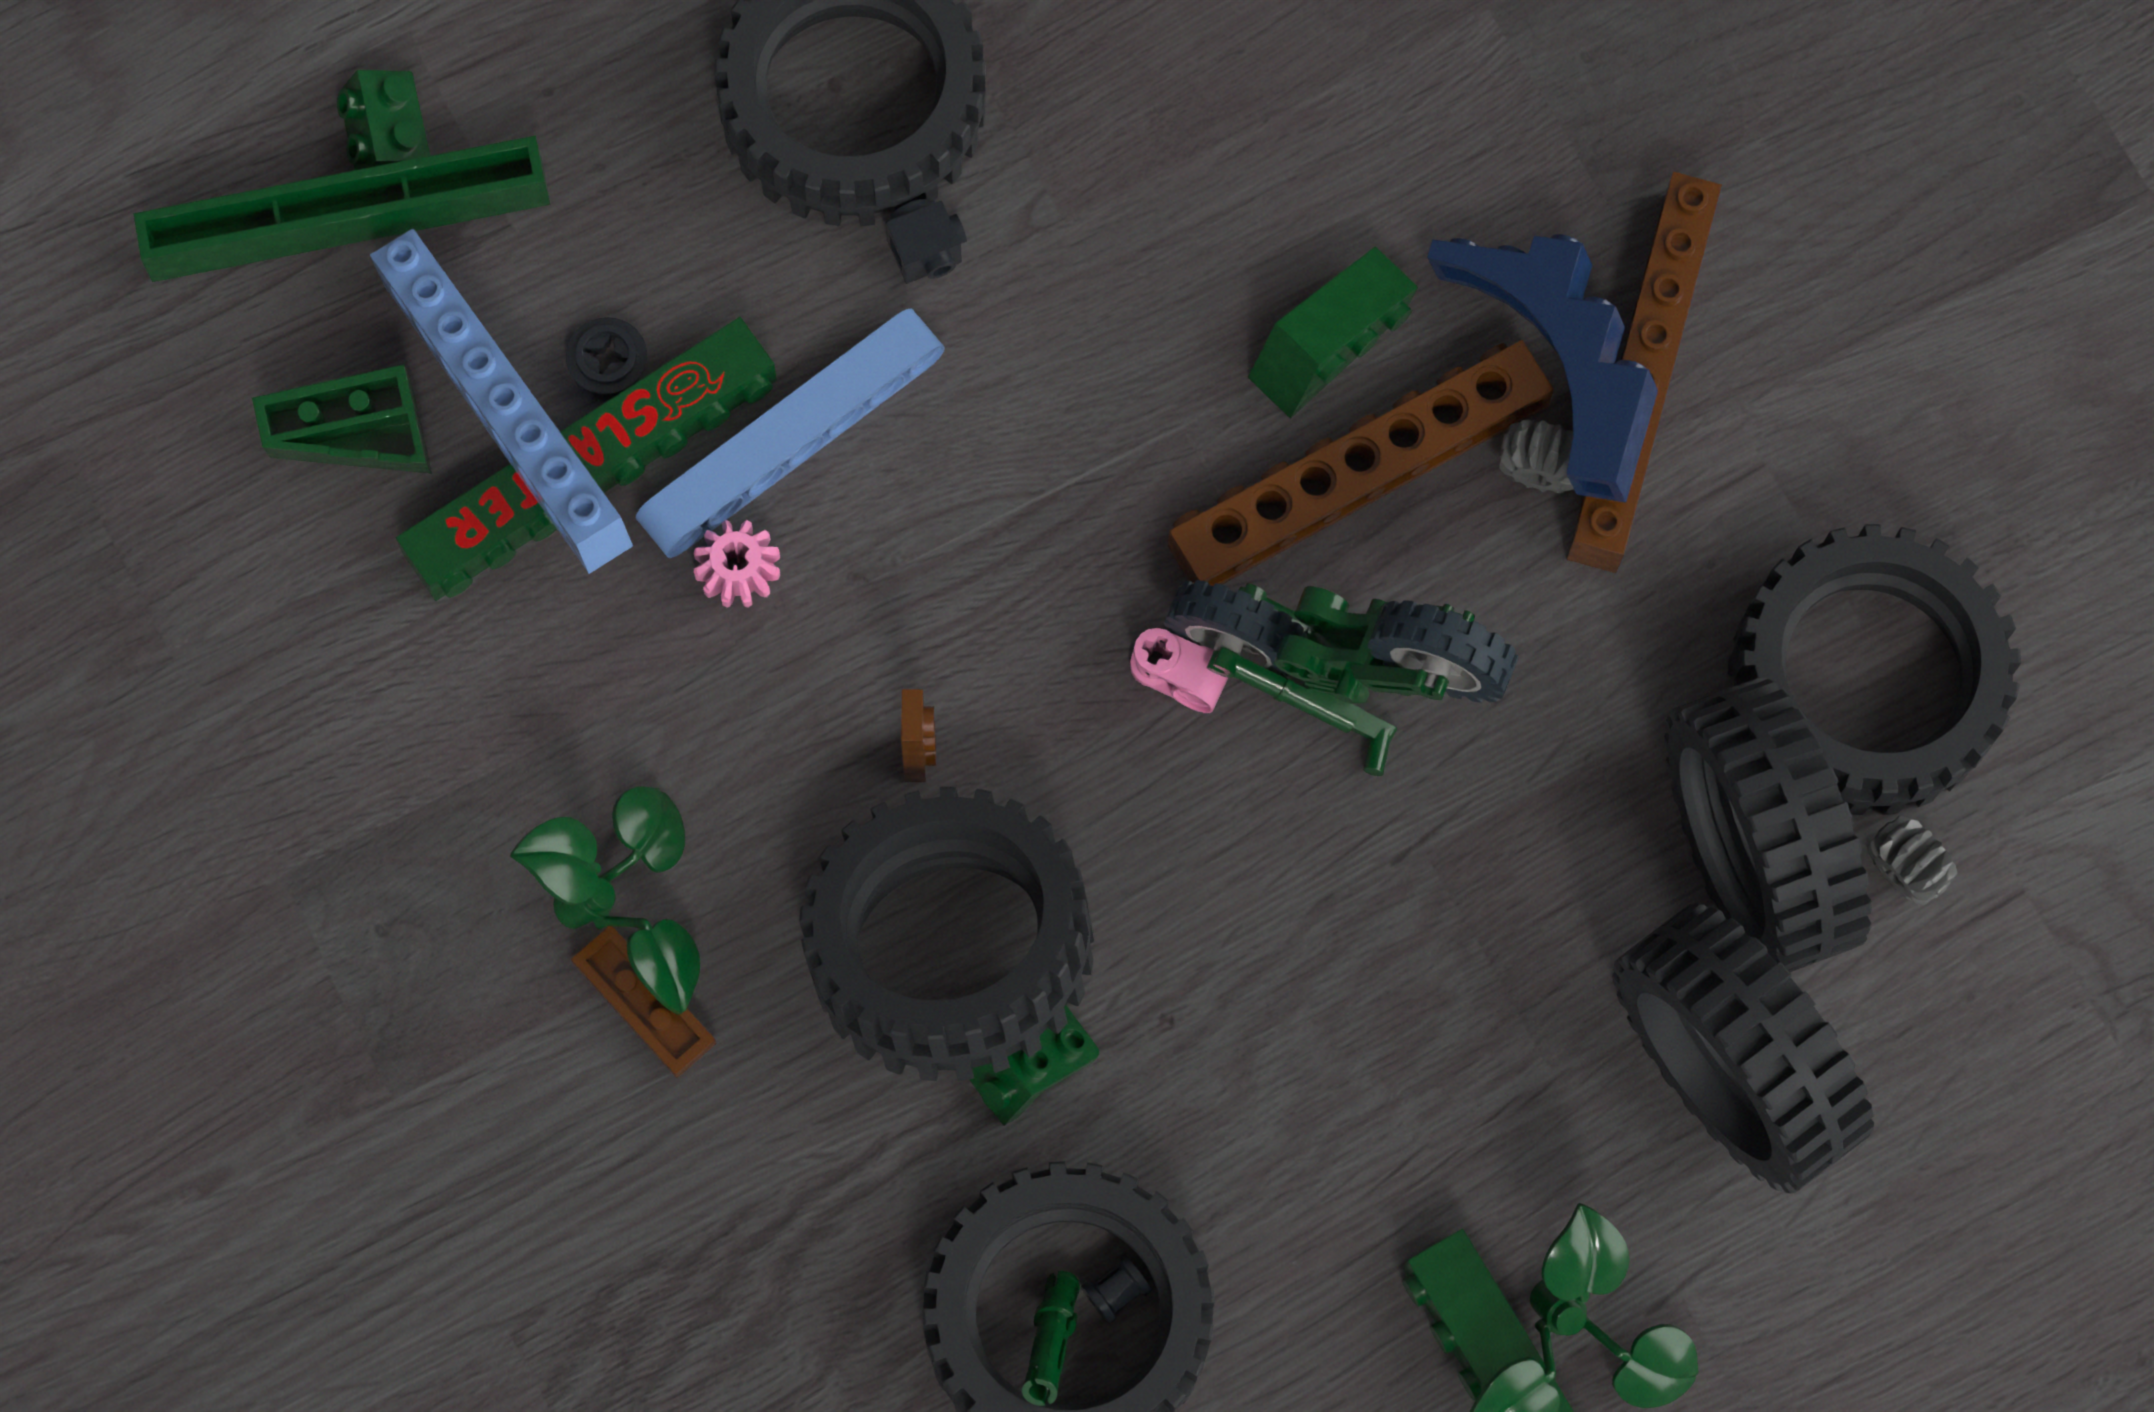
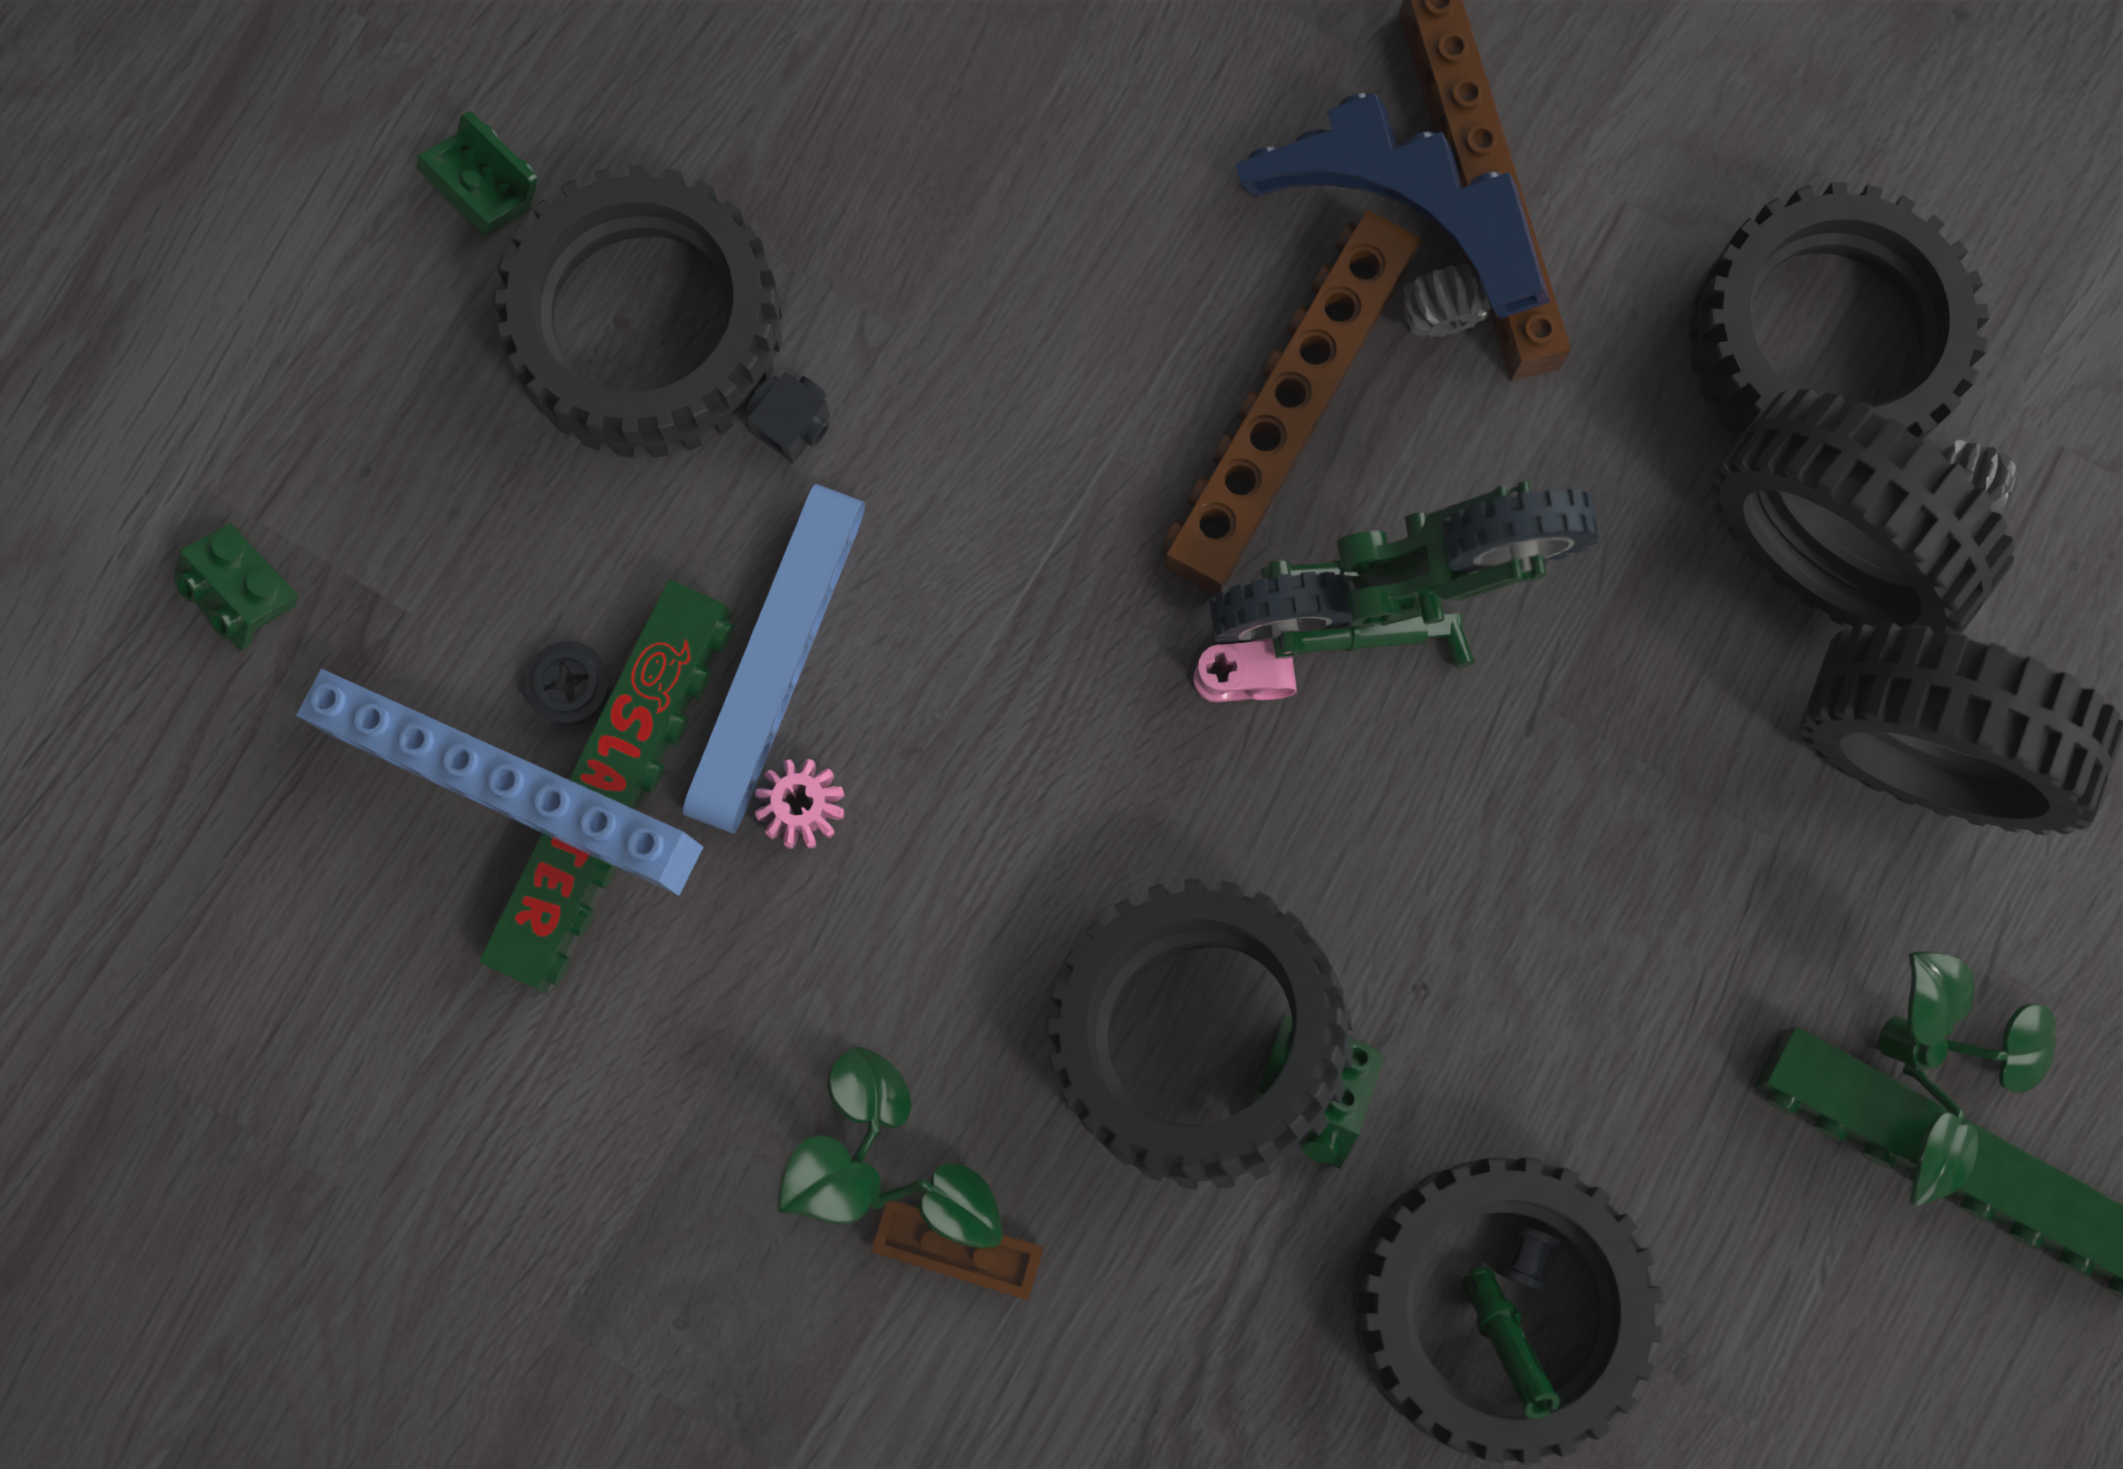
camera: 30 degrees left, 5 degrees up
(341, 209) = (241, 688): dark green brick -> none
(347, 422) = (368, 879): dark green wedge -> none
(917, 735) = (1063, 869): reddish brown plate -> none
(1332, 330) = (1195, 294): dark green wedge -> none

